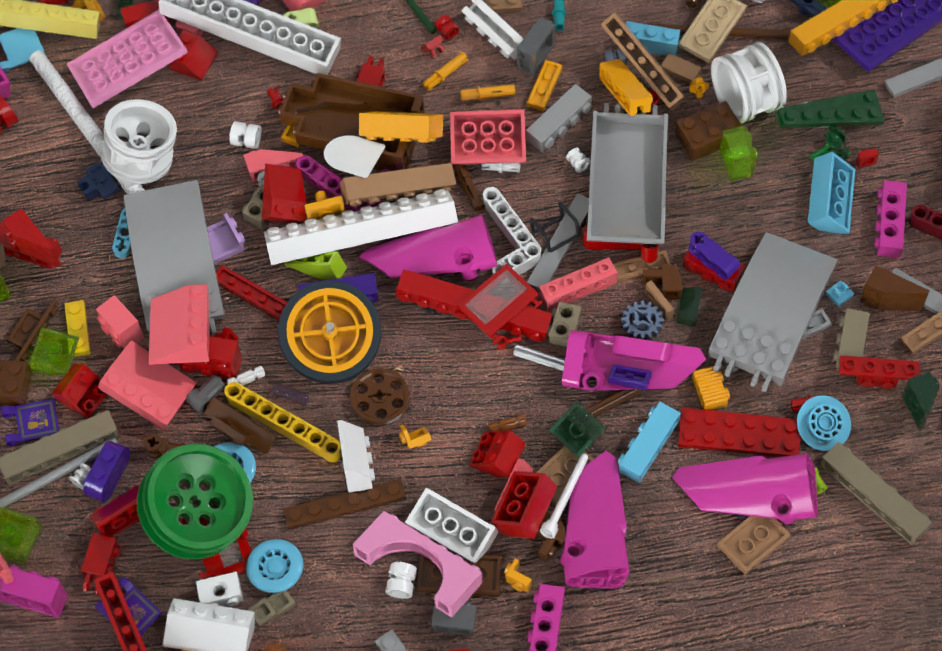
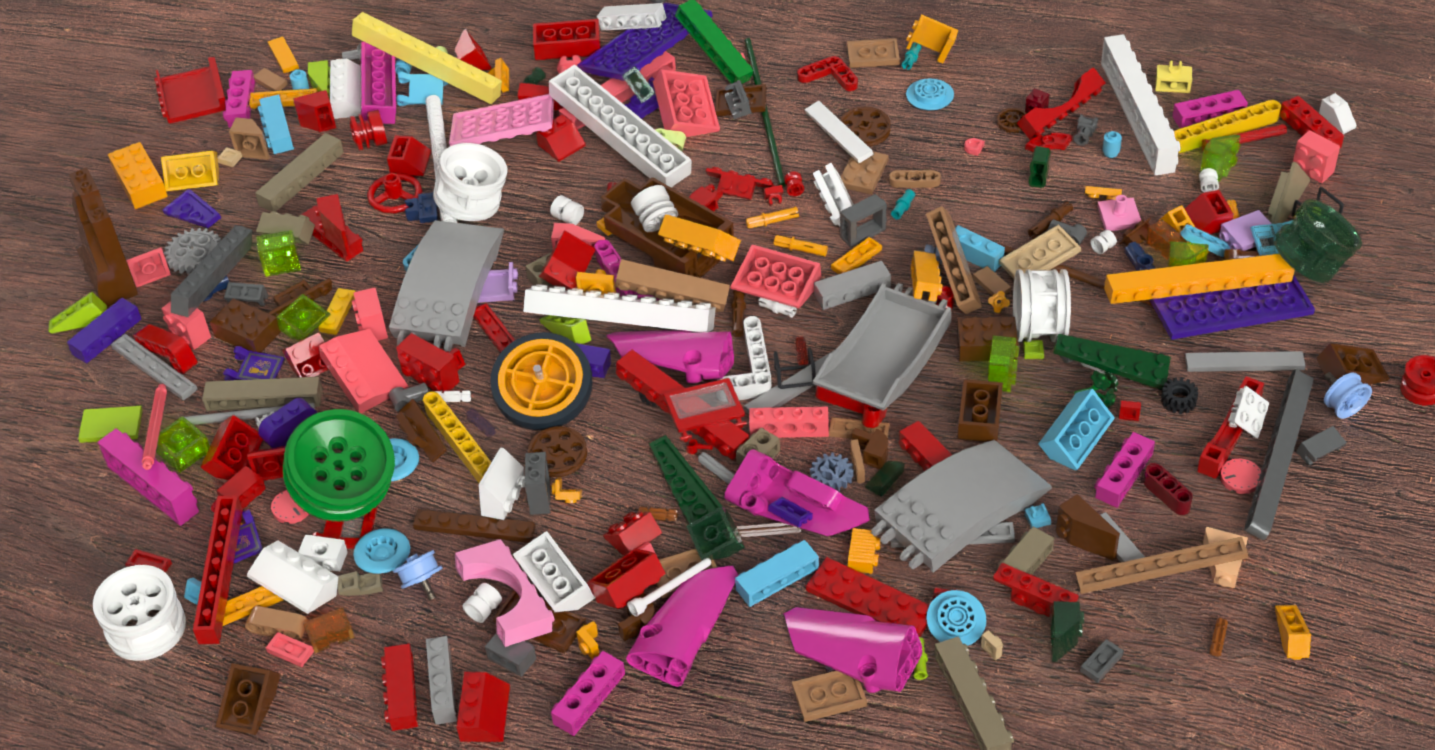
camera: 25 degrees right, 15 degrees down
(51, 130) = (408, 156): none -> red slope
(56, 174) = (393, 190): none -> red piece
(65, 519) = (230, 448): none -> red slope
(154, 559) = (286, 510): none -> coral tile
(180, 326) = (414, 327): coral slope -> none
(327, 574) = (418, 571): none -> light blue wheel
(338, 107) = (652, 206): none -> white wheel
(353, 154) = (642, 246): white sticker -> none
(386, 436) = (537, 483): none -> dark grey window
(393, 47) = (738, 185): none -> red bracket
(529, 393) = (686, 486): none -> dark green wing
(548, 206) = (802, 357): none -> clear red piece
(578, 160) = (848, 322): white bush -> none
(713, 255) = (925, 435): dark purple piece -> none
(742, 208) = (980, 410): none -> reddish brown brick
(754, 126) = (1033, 349): none -> lime tile
(866, 436) = (992, 645): none -> tan plate
(902, 117) = (1180, 387): none -> black tyre

